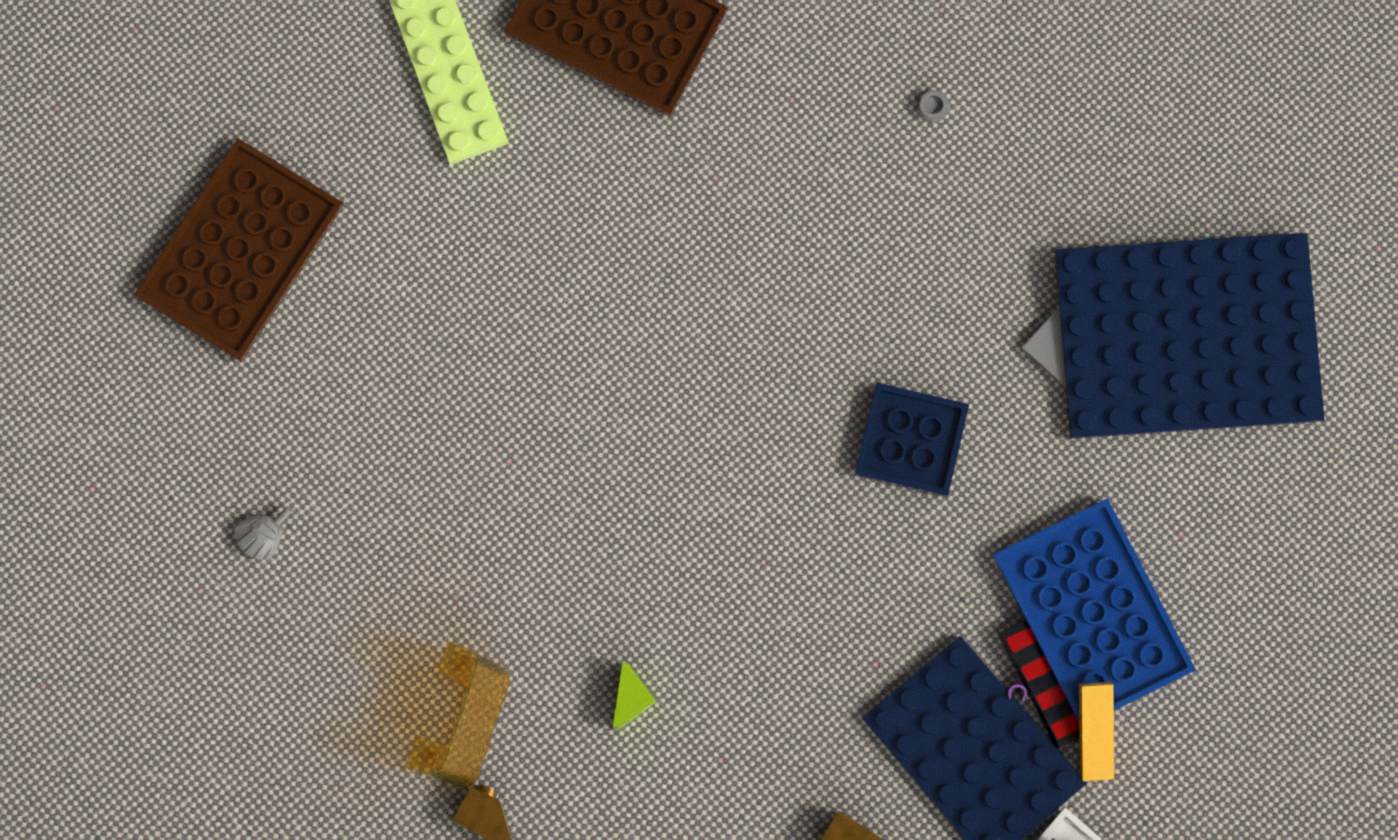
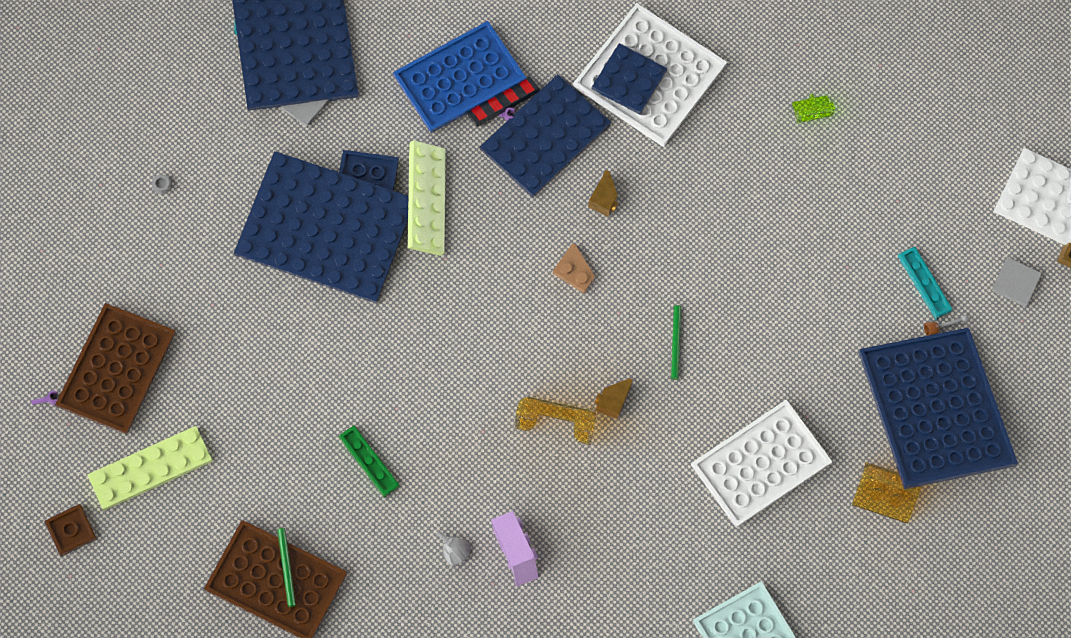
camera: 100 degrees left, 10 degrees down
(248, 629) = (516, 547): none -> lavender wedge
(253, 266) = (286, 567): none -> green bar
(422, 409) = (369, 461): none -> green tile
(632, 698) = (534, 322): lime slope -> none
(723, 776) = (574, 270): none -> medium nougat wing
(833, 366) = (324, 227): none -> dark blue plate
(868, 536) = (426, 198): none -> yellowish green plate
(1096, 731) = (528, 69): yellow tile -> none

